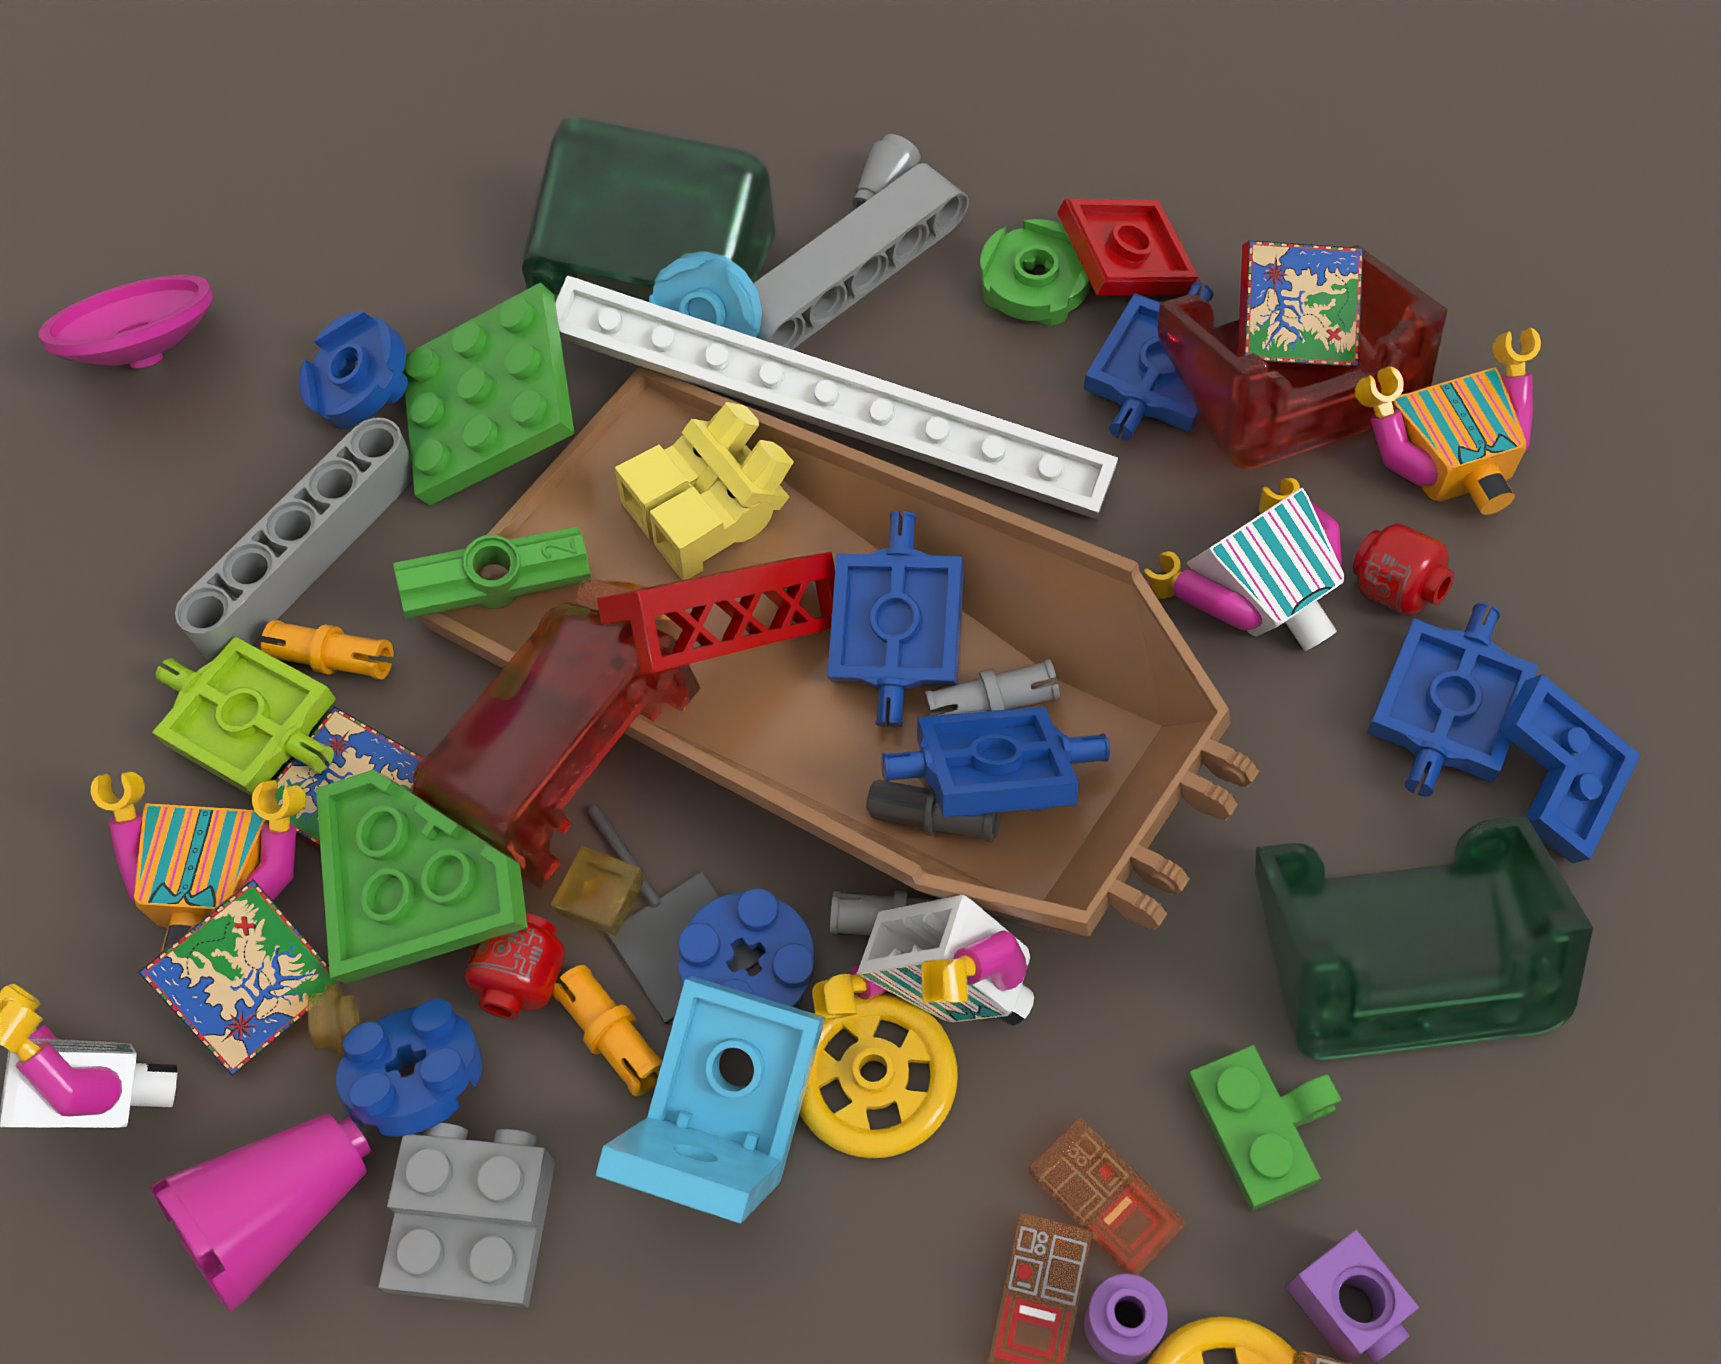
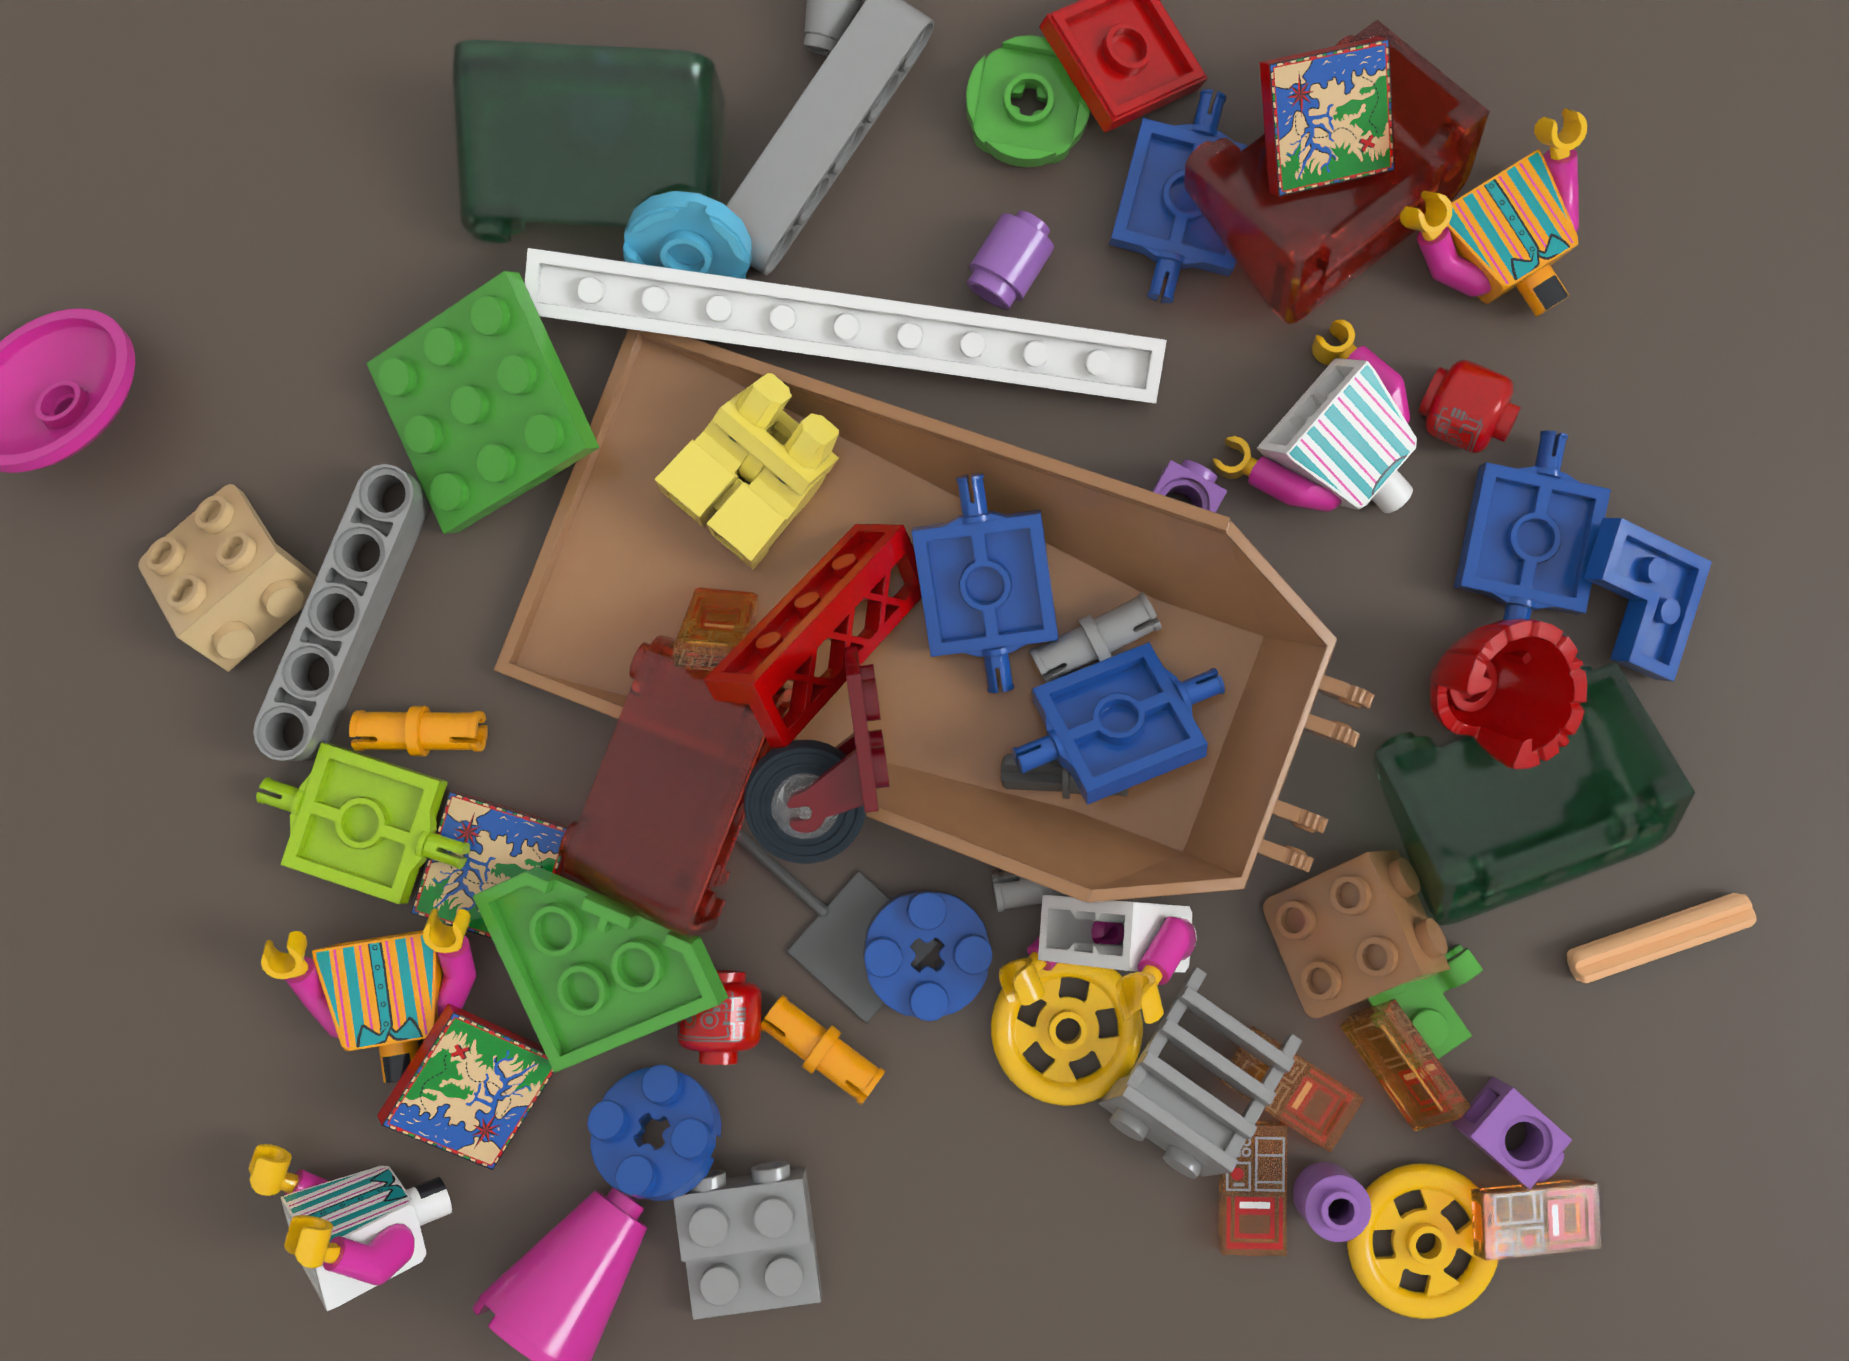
camera: 20 degrees left, 25 degrees up
(208, 494) = (225, 579): none -> tan bracket
(331, 1017) = (567, 1102): clear yellow plate -> none
(347, 393) = (354, 398): blue plate -> none
(452, 581) = (524, 642): bright green piece -> none
(598, 890) = (771, 921): clear yellow plate -> none
(666, 729) = (814, 796): none -> plate
(710, 1139) = (947, 1123): medium azure bracket -> none
(970, 1175) = (1180, 1116): none -> light grey plate
(990, 376) = (1010, 259): none -> medium lavender brick
(1205, 1027) = (1355, 932): none -> medium nougat bracket
(1238, 1192) = (1405, 1065): none -> clear orange tile
(1409, 809) = (1511, 690): none -> red hair
(1553, 1125) = (1661, 937): none -> light nougat axle

